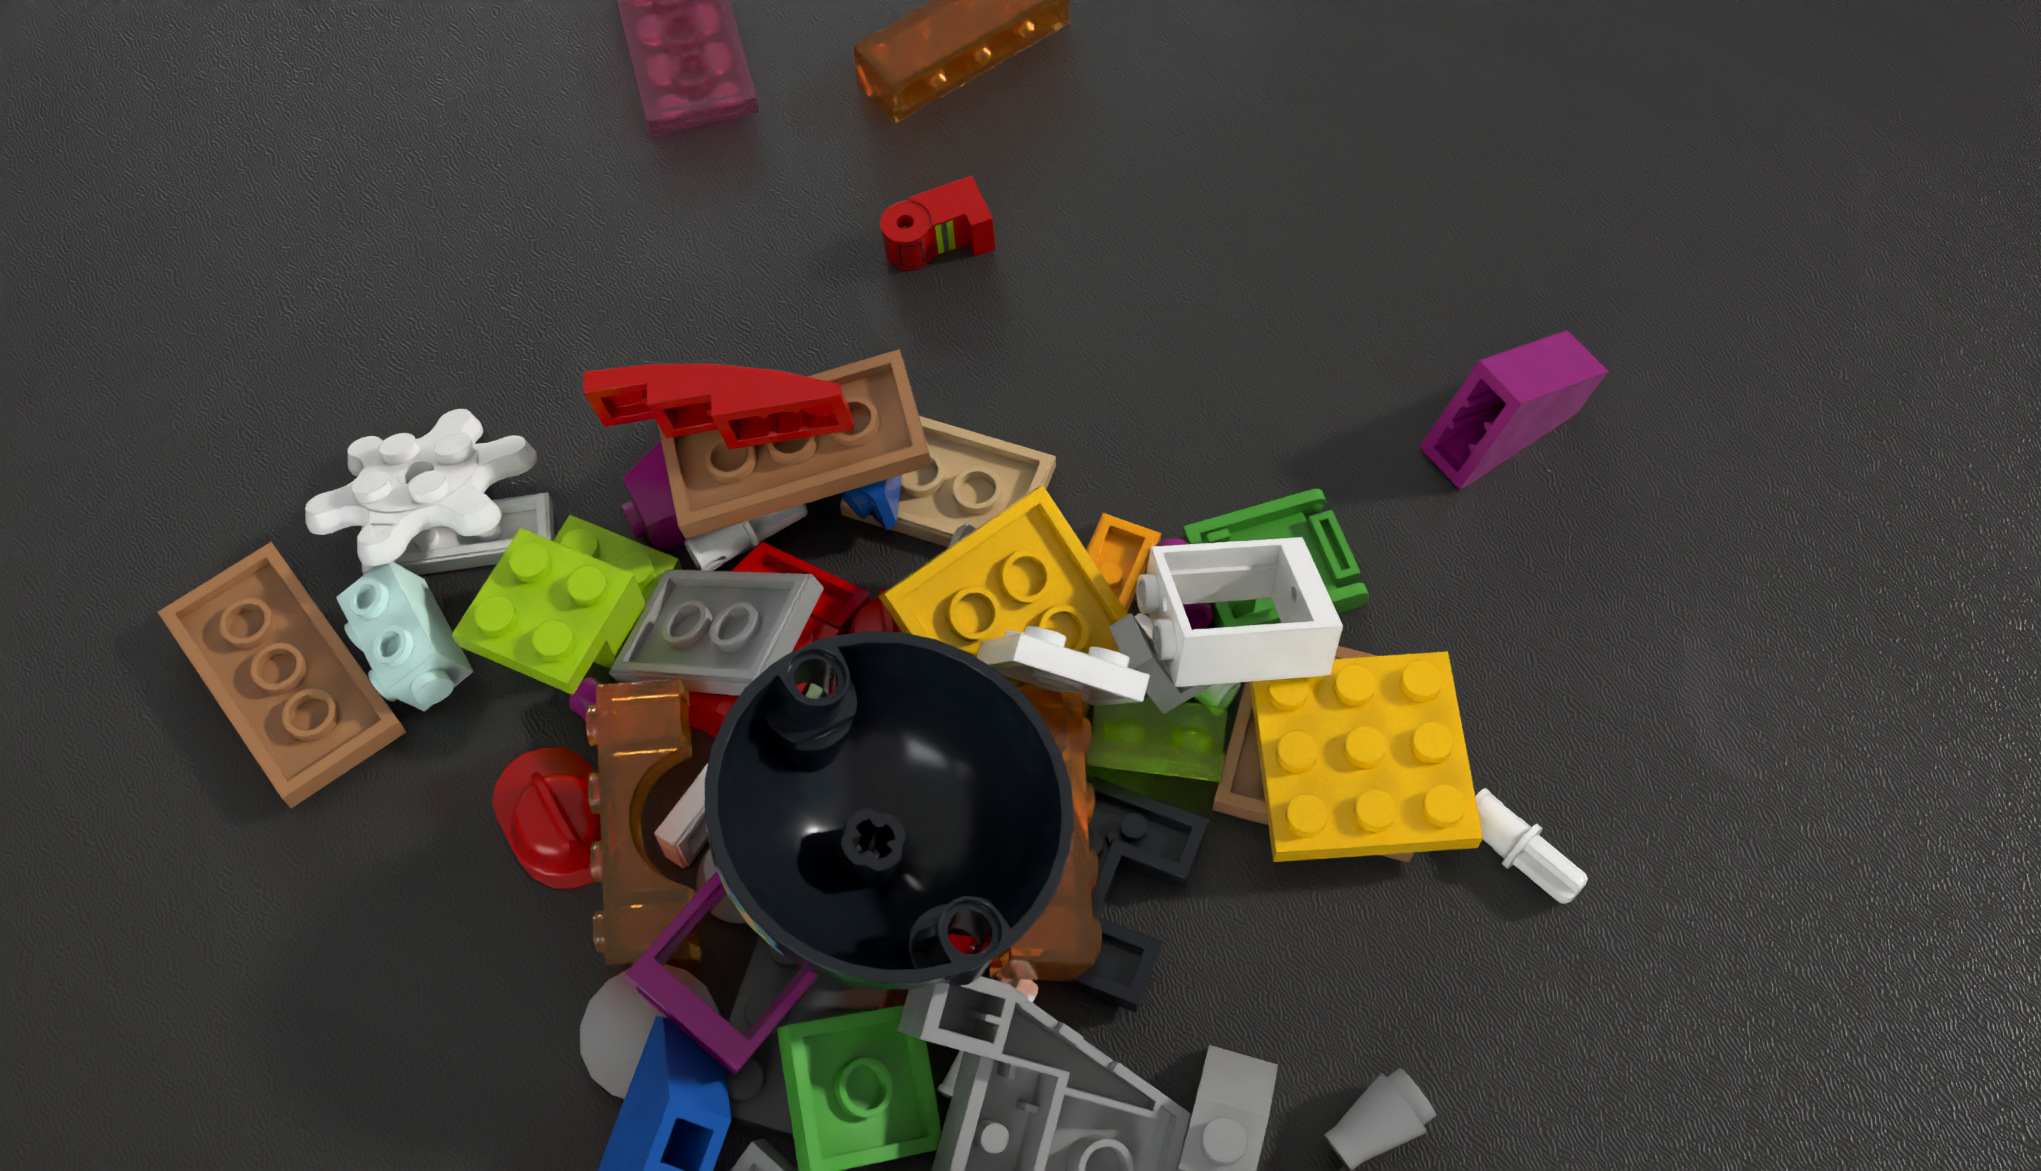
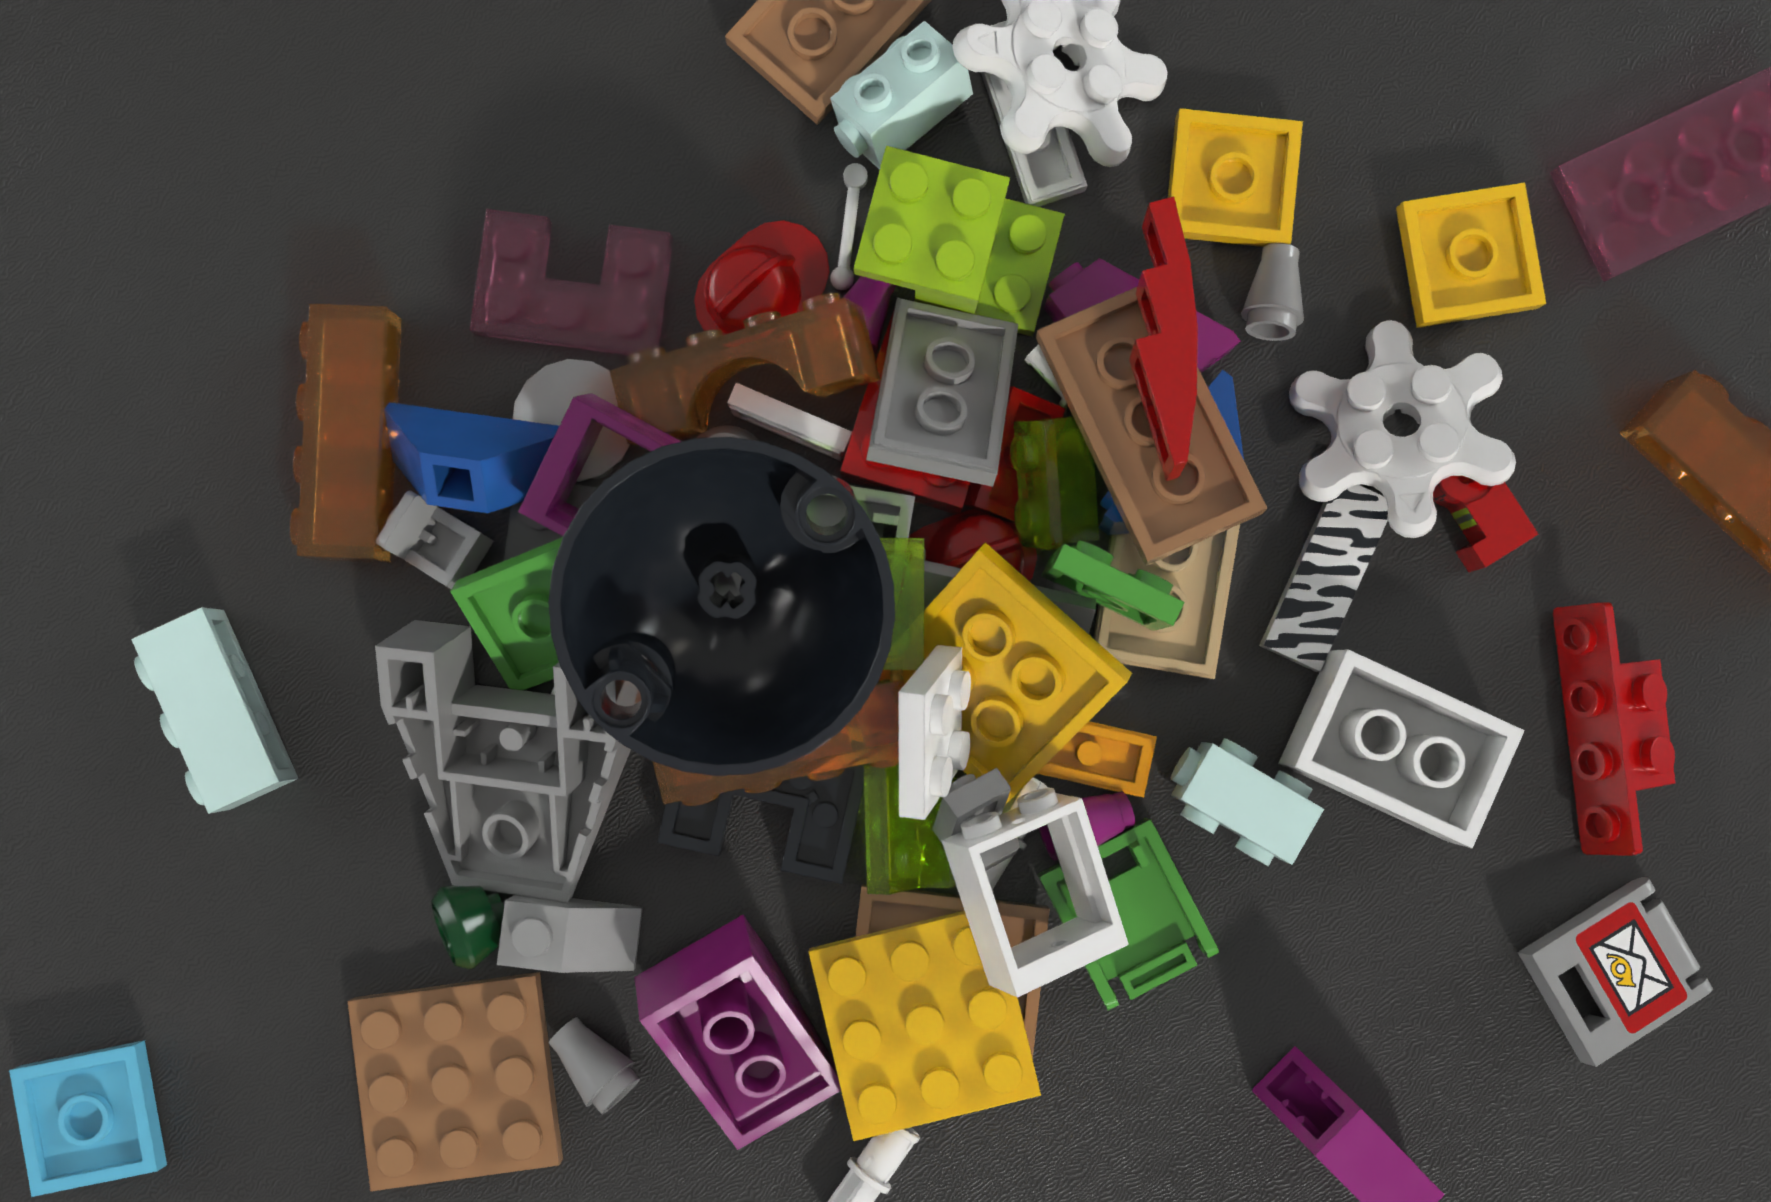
camera: 75 degrees right, 25 degrees up
(474, 707) = (855, 178): none -> white hinge
(504, 1073) = (522, 305): none -> clear pink plate
(552, 365) = (1235, 176): none -> yellow plate
(698, 346) = (1275, 296): none -> light grey cone
(707, 199) = (1470, 255): none -> yellow plate
(837, 555) = (1053, 483): none -> clear neon green bracket
(869, 292) = (1401, 466): none -> white plate
(952, 494) = (1138, 597): none -> bright green plate
(974, 353) = (1326, 577): none -> tile
(1145, 308) = (1401, 747): none -> white brick
(1155, 160) = (1612, 726): none -> red bracket
(1177, 439) = (1228, 791): none -> light aqua brick
(1354, 953) = (736, 1032): none -> magenta slope
(1370, 173) = (1630, 964): none -> container

